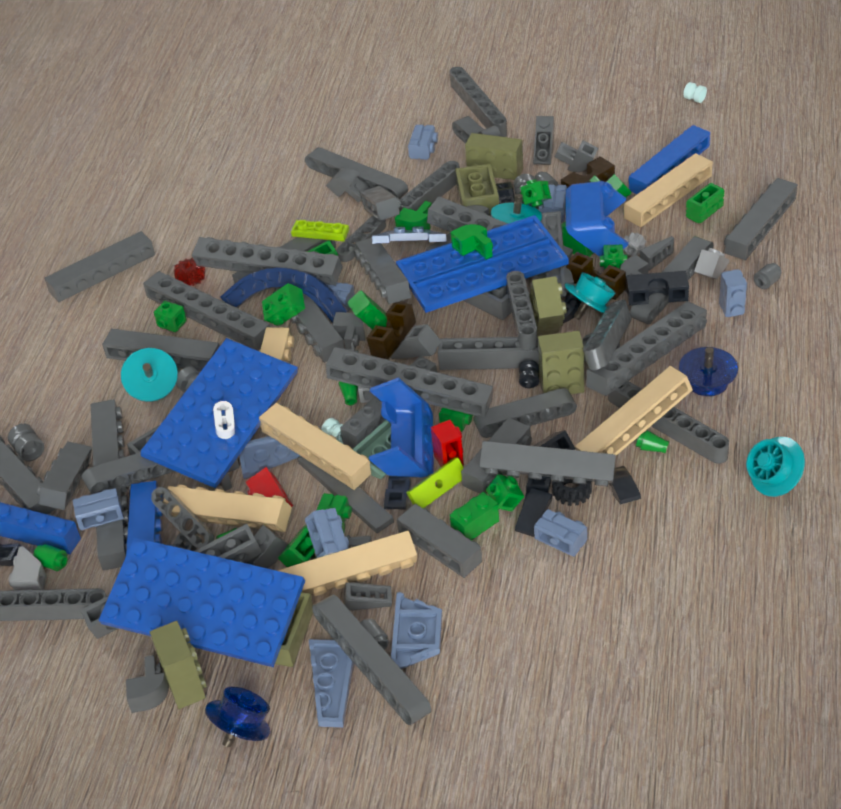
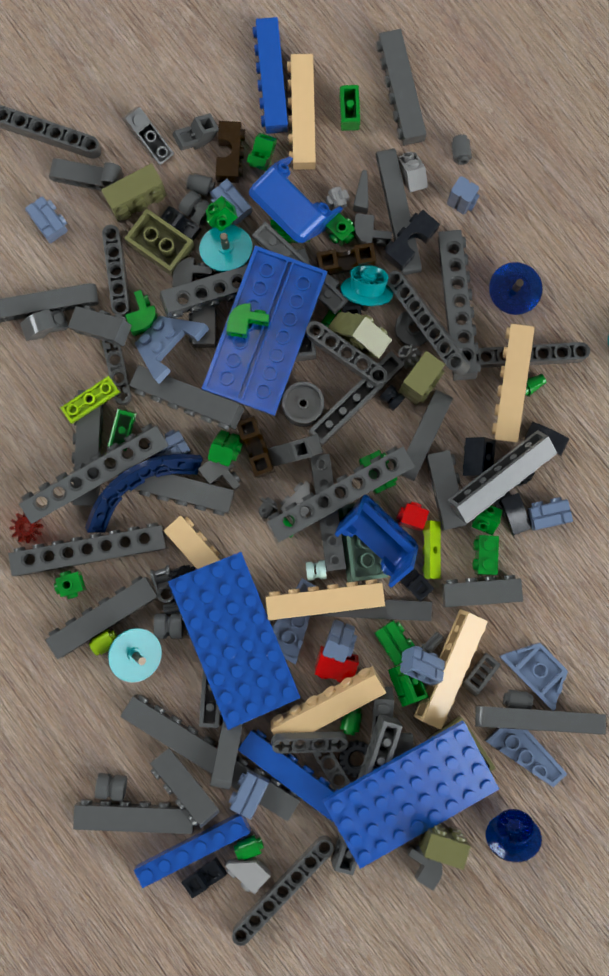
camera: 55 degrees left, 40 degrees up
(220, 420) = (252, 654): white beam -> none
(283, 304) = (156, 501): green brick -> none
(290, 475) = (340, 641): none -> sand blue brick
(457, 323) = (302, 393): none -> dark grey wheel

